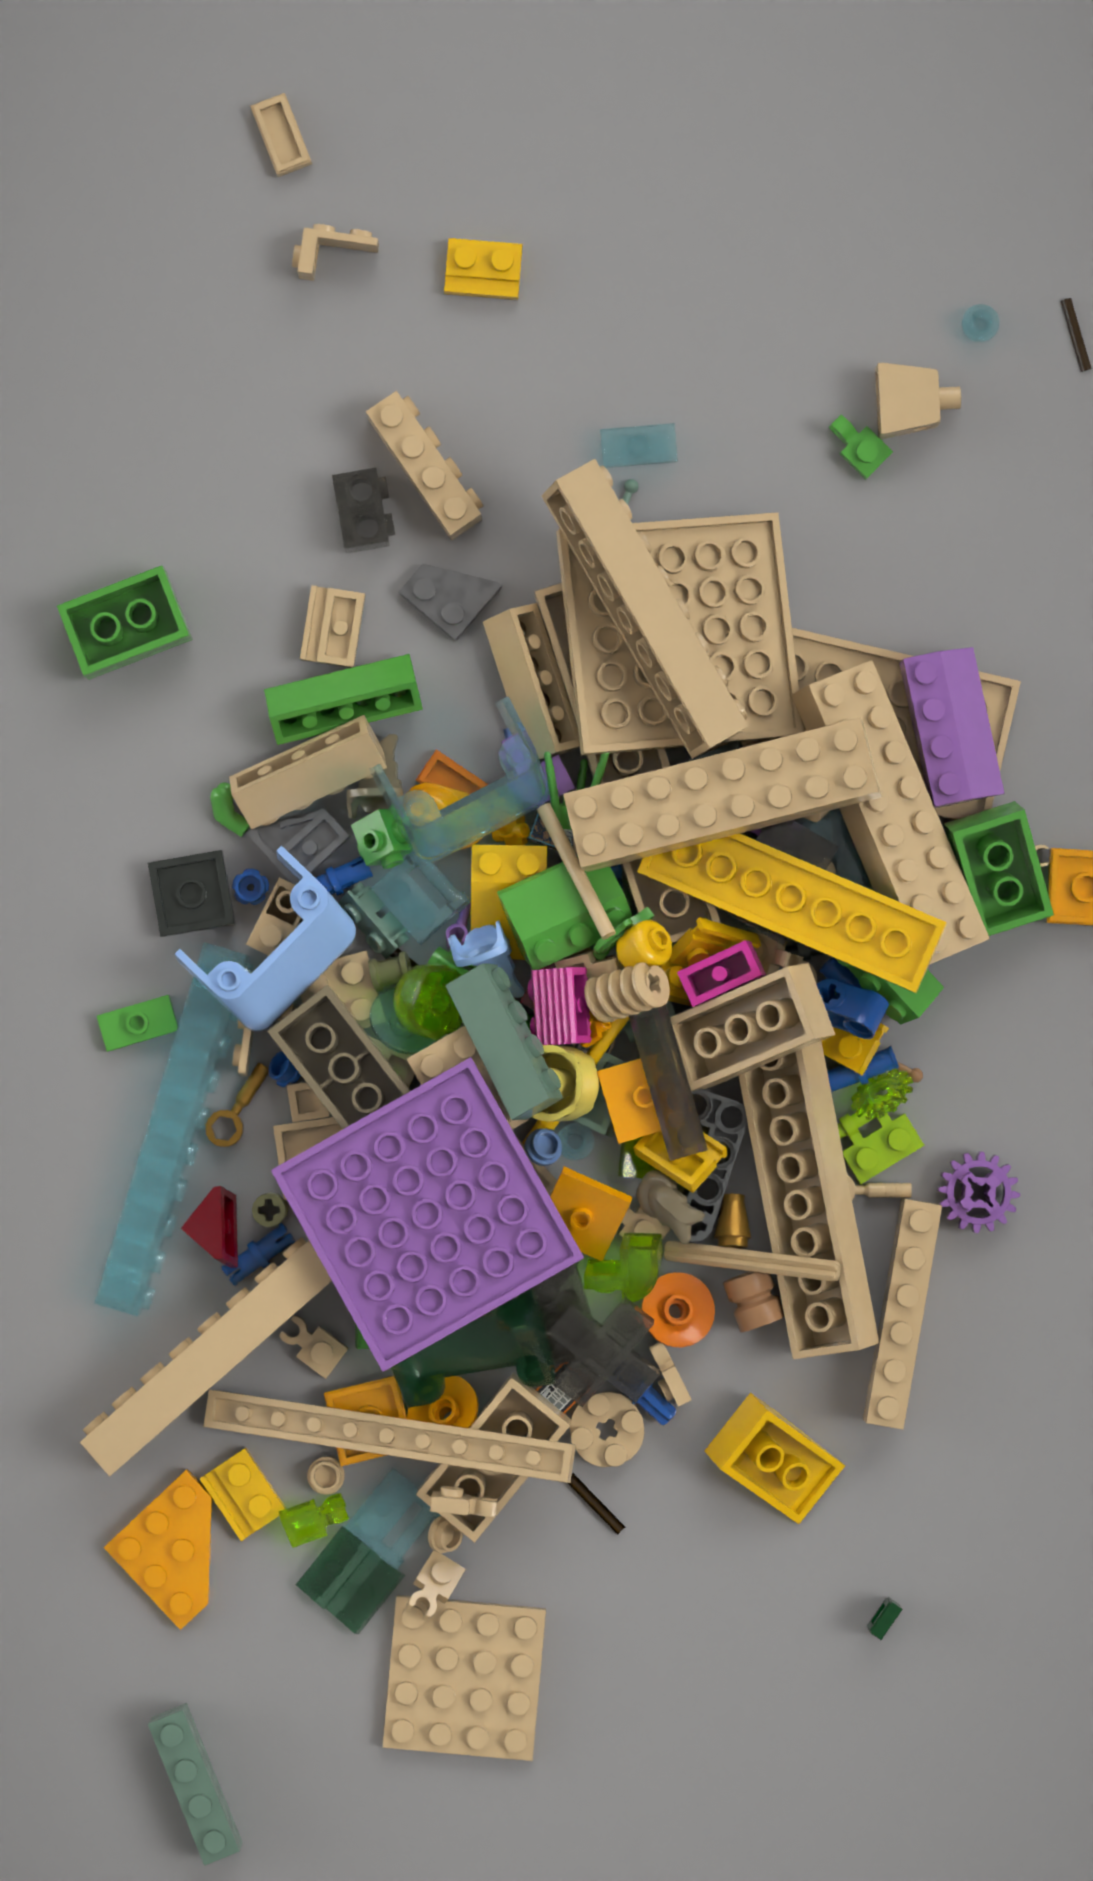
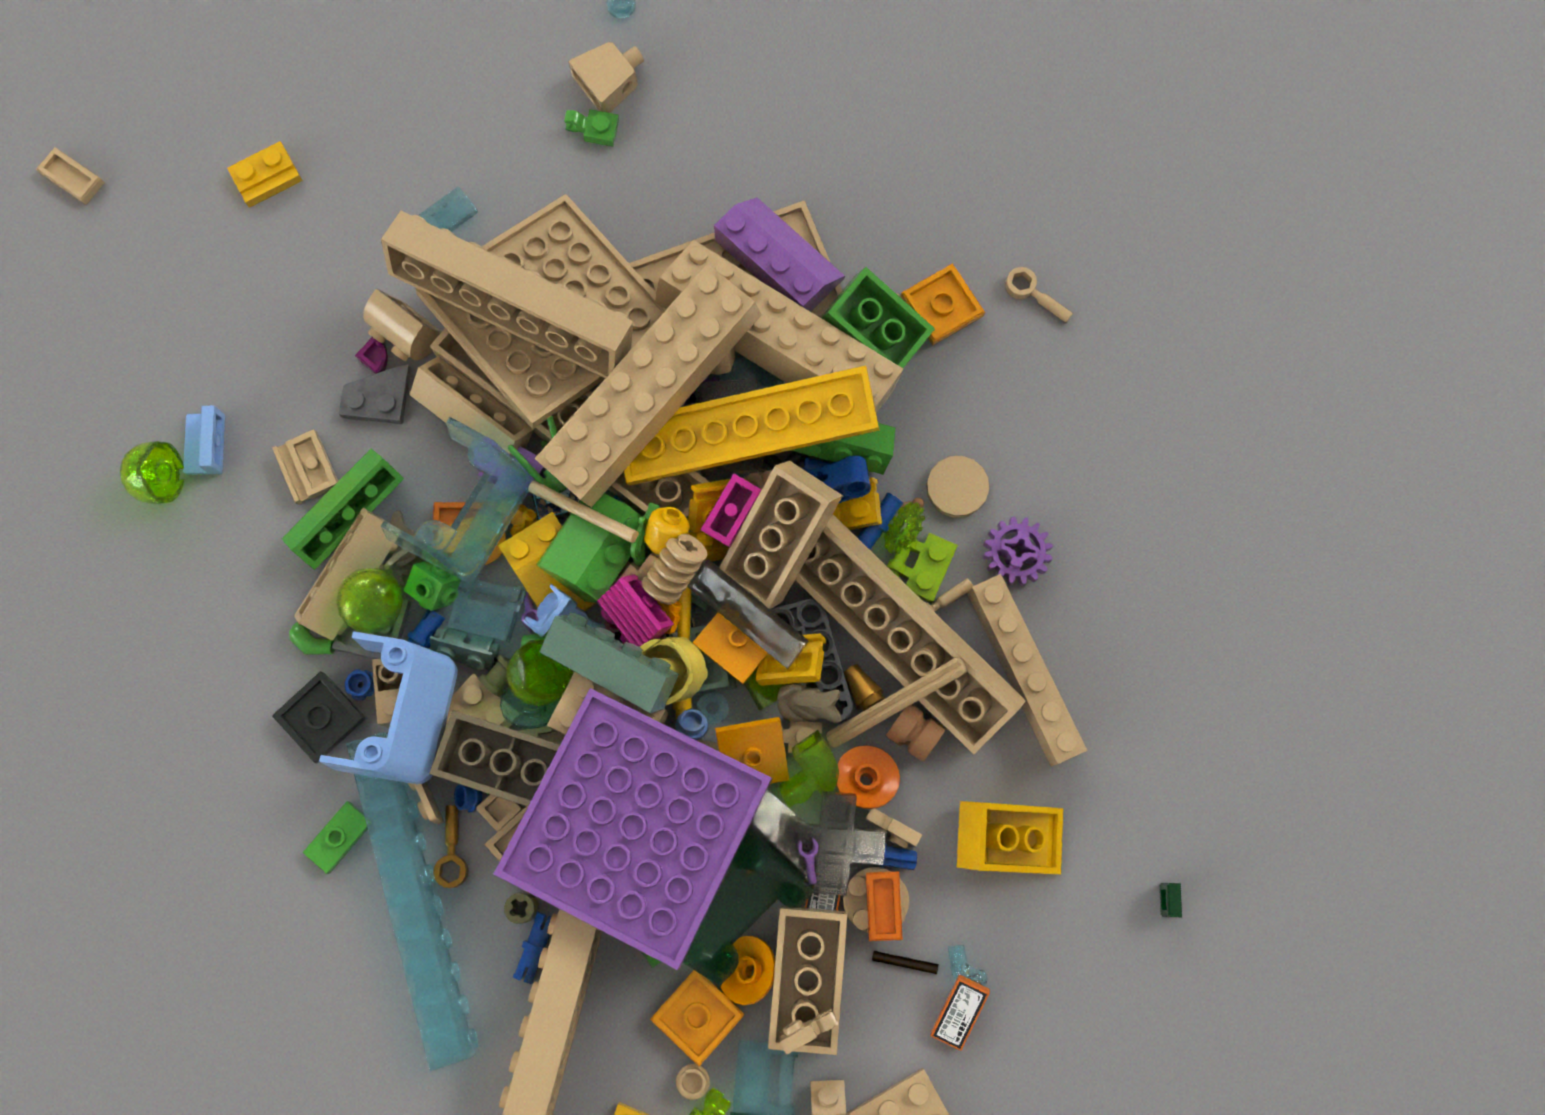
camera: 35 degrees left, 10 degrees down
(124, 622) = (149, 558): bright green brick -> none
(176, 534) = (152, 472): none -> clear neon green cylinder
(215, 1226) = (487, 947): dark red slope -> none
(245, 528) = (204, 442): none -> light blue panel
(306, 254) = (141, 217): tan bracket -> none
(313, 817) = (369, 600): none -> clear neon green cylinder
(319, 1350) = (626, 988): tan plate -> none
(353, 511) = (277, 376): clear smoke brick -> none
(390, 1436) = (719, 1016): tan plate -> none
(423, 464) = (301, 319): tan brick -> none
(444, 1536) = (811, 1066): tan plate -> none
(472, 549) = (373, 355): none -> magenta tile
(520, 543) = (400, 325): none -> tan brick
(569, 1351) = (809, 860): none -> medium lavender hand
(610, 1439) = (883, 906): none -> orange tile
(614, 1583) = (960, 1012): none -> tile
(643, 1549) = (960, 966): none -> clear light blue arm
(967, 1085) = (957, 486): none -> tan tile

